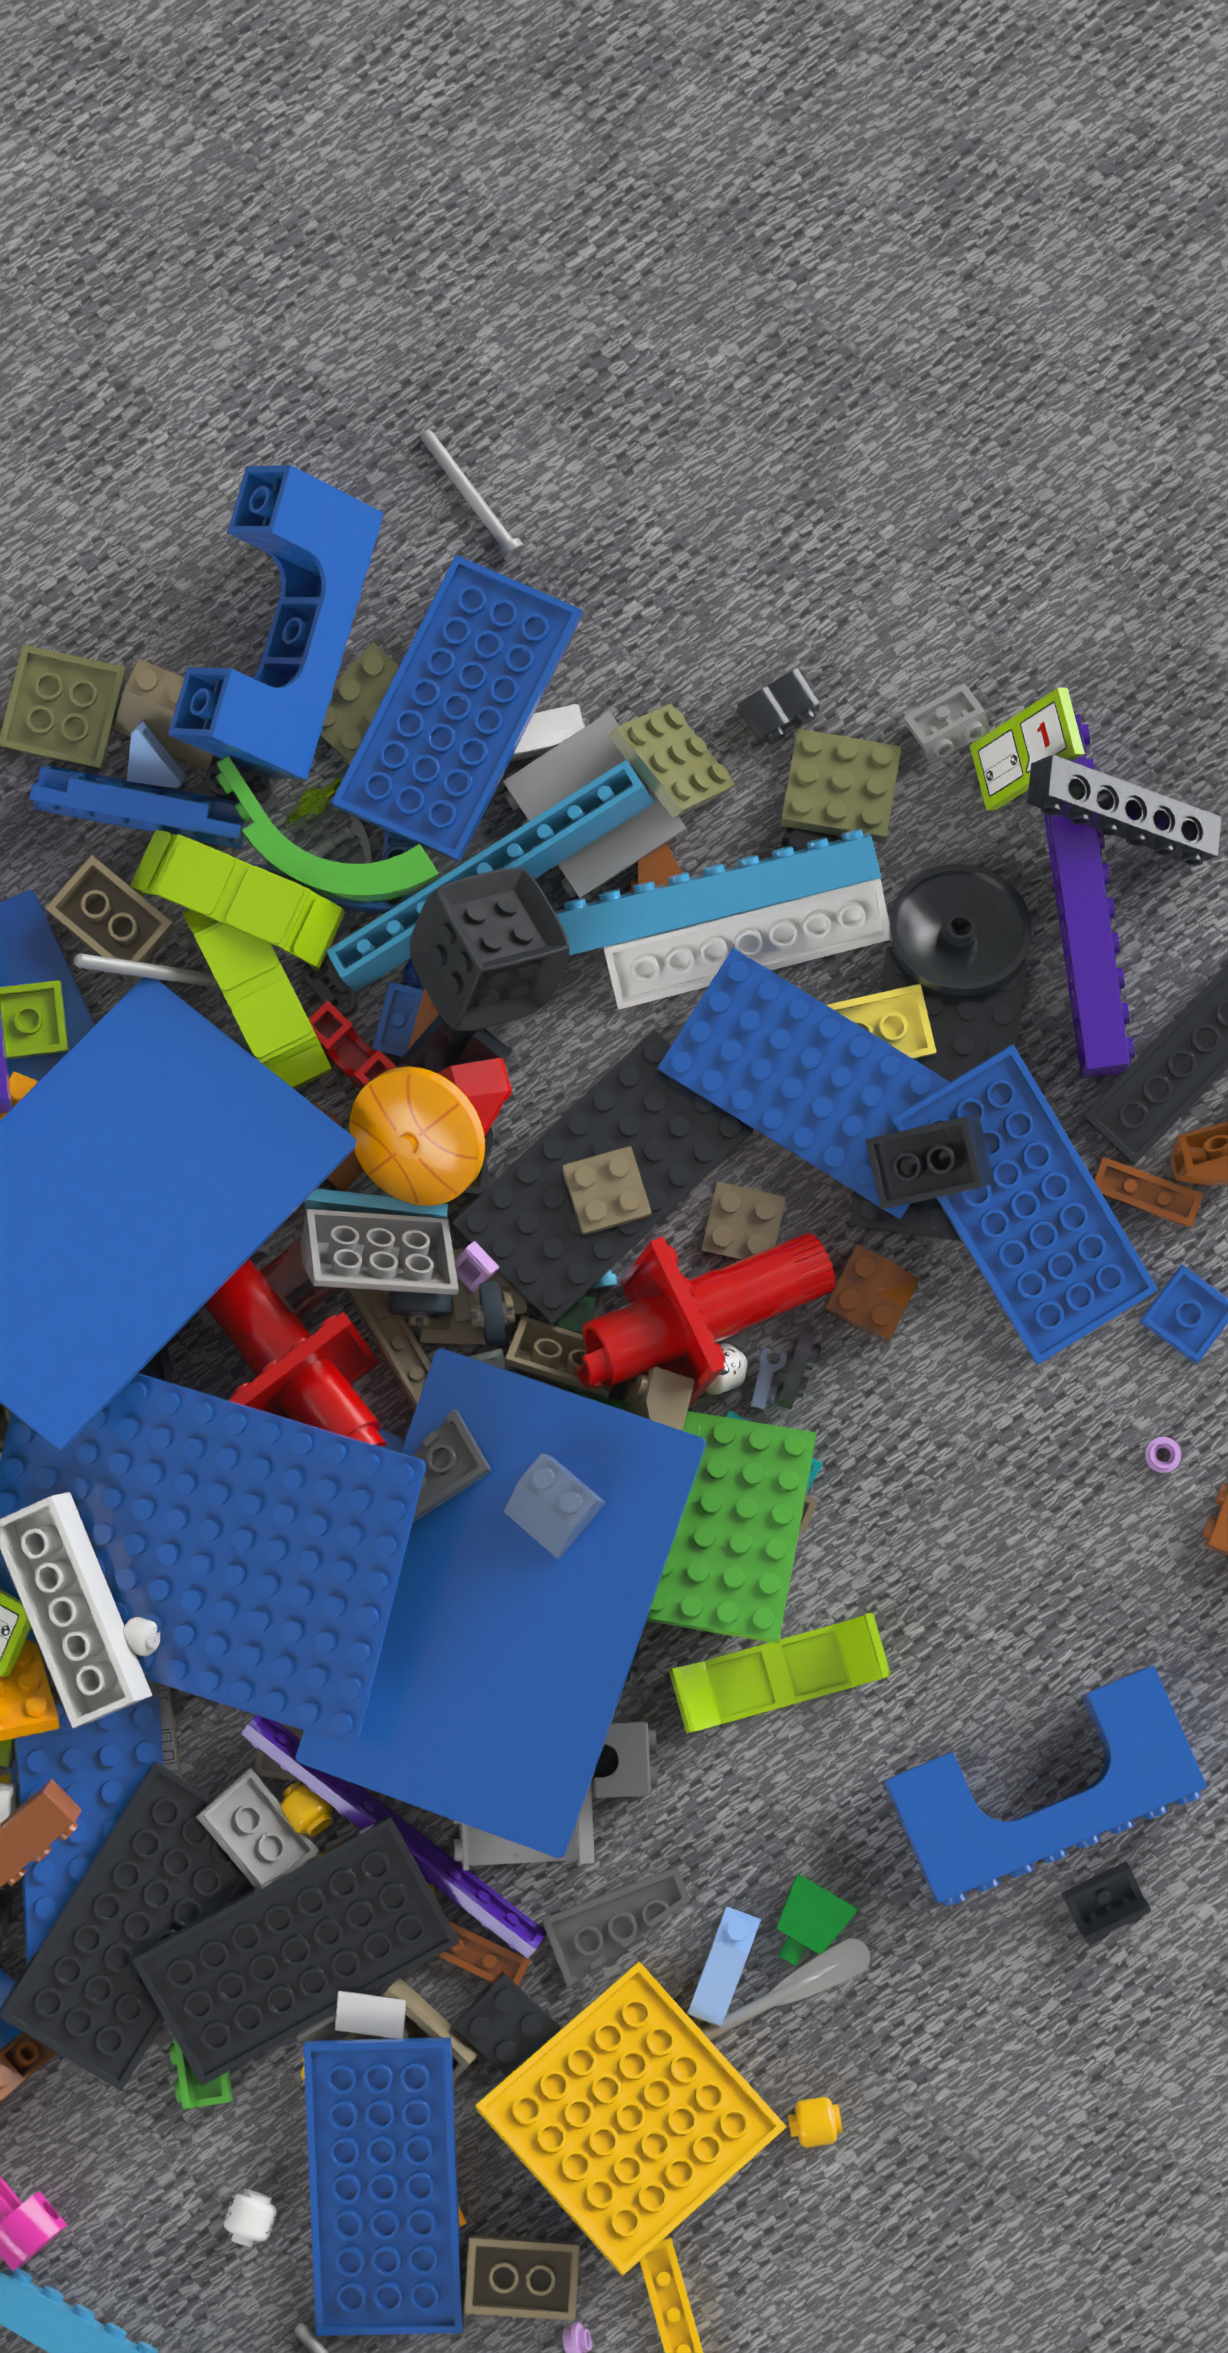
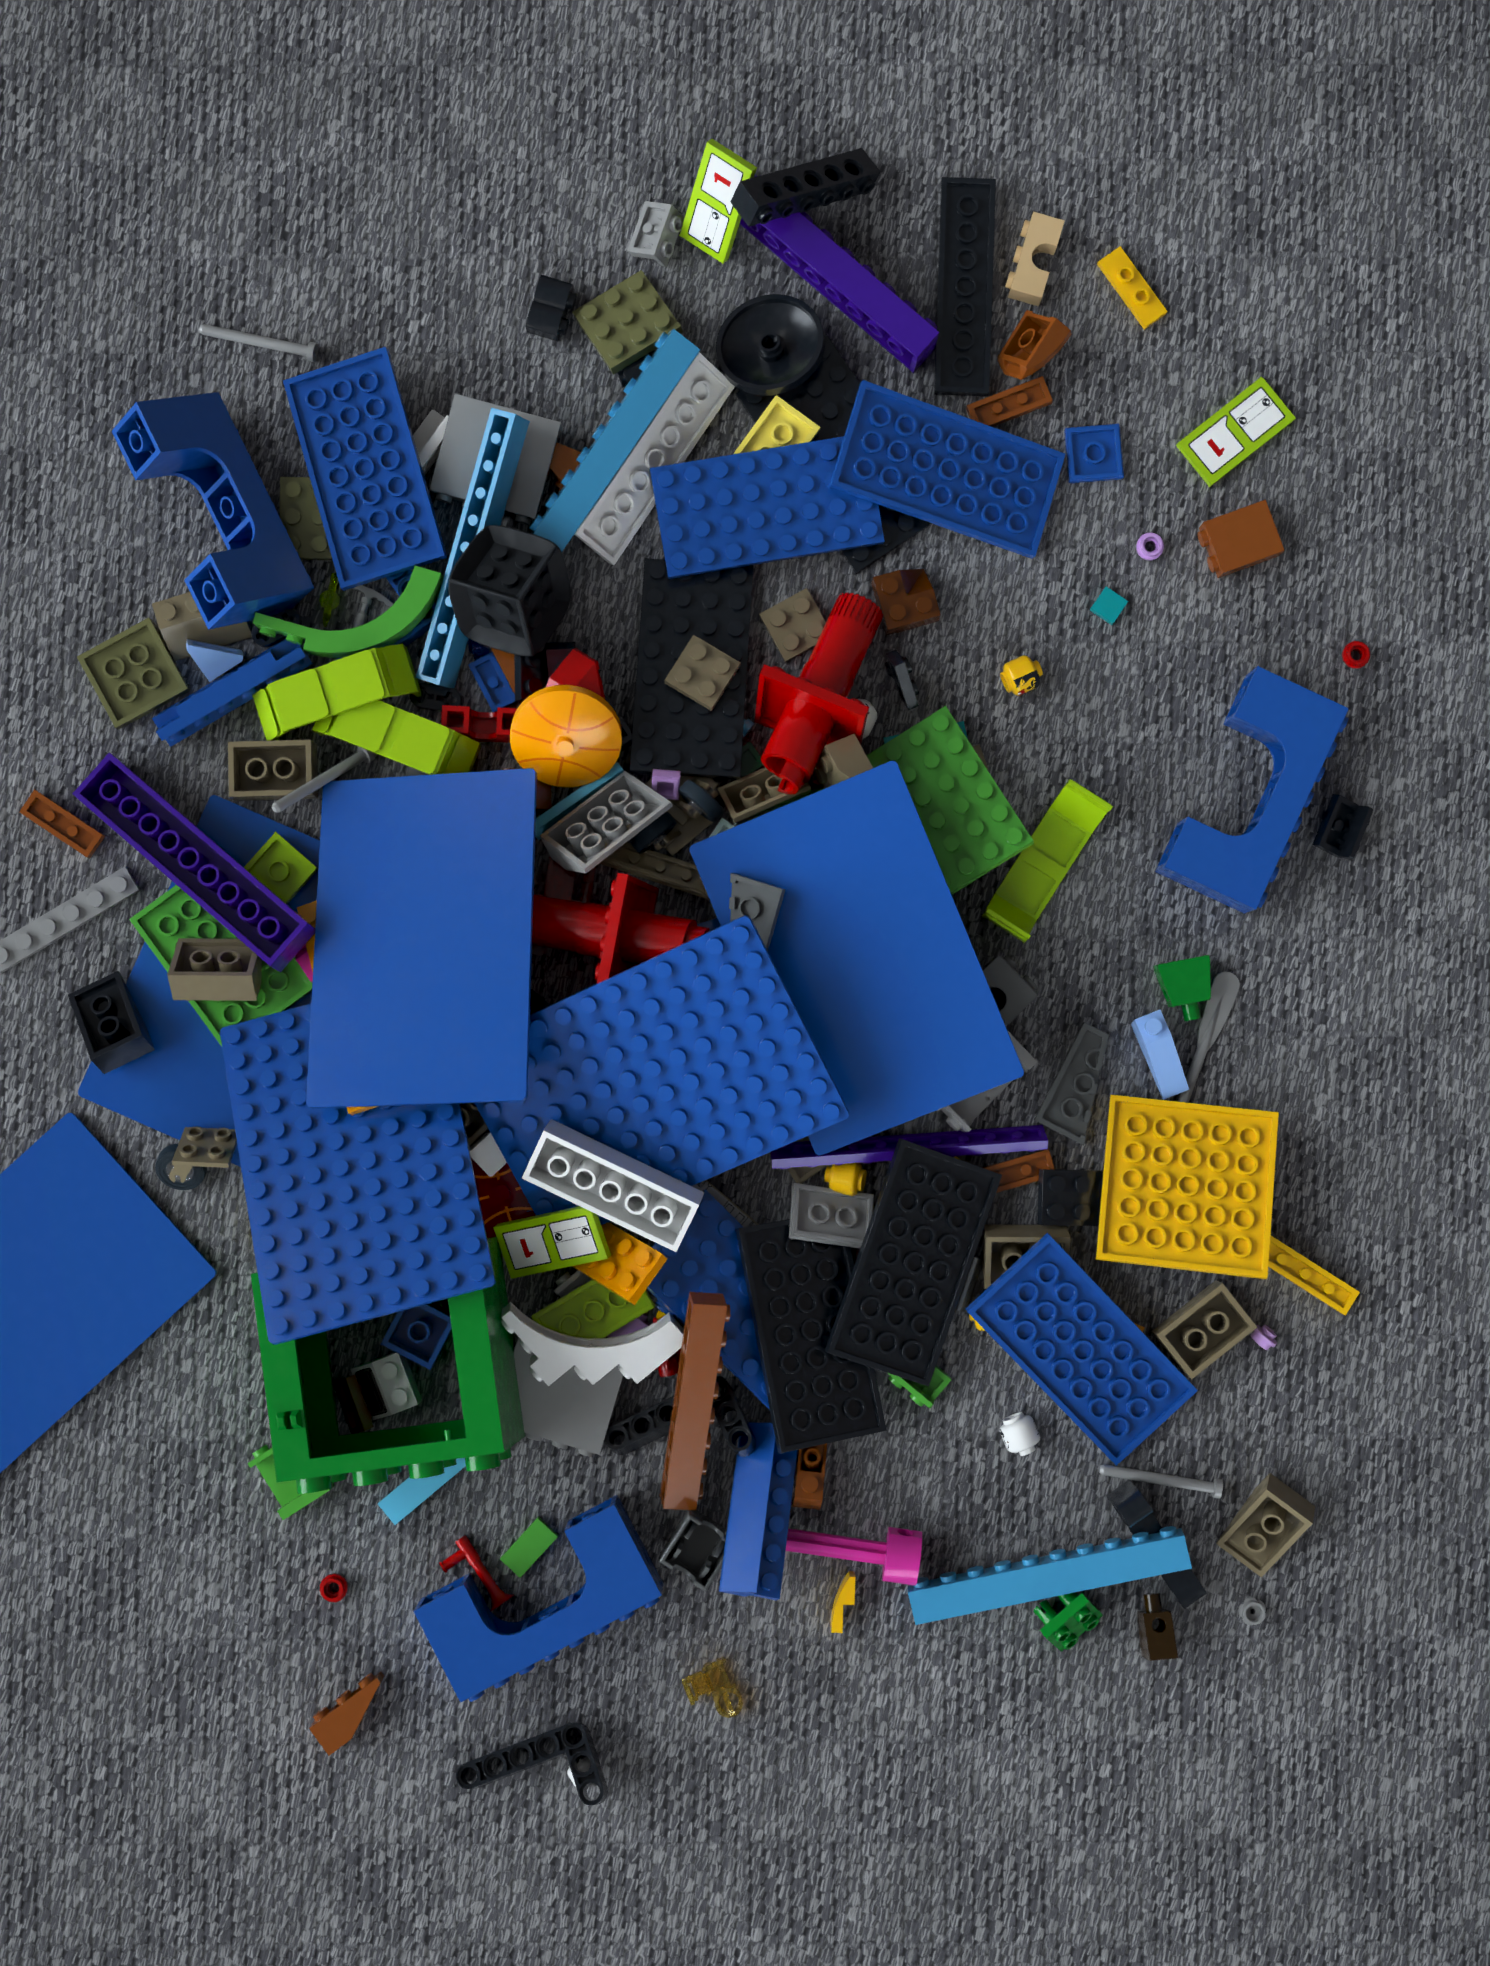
camera: 45 degrees left, 5 degrees up
(141, 1636) = (667, 1164): white piece -> none
(370, 2015) = (989, 1260): white sticker -> none
(552, 1504) = (839, 877): sand blue slope -> none
(672, 760) = (517, 390): olive plate -> none
(765, 1390) = (892, 709): sand blue plate -> none
(815, 2122) = (1289, 1095): yellow head -> none
(920, 1469) = (1021, 675): none -> yellow head
(929, 1161) = (875, 489): black slope -> none
(1070, 1477) = (1108, 605): none -> teal tile

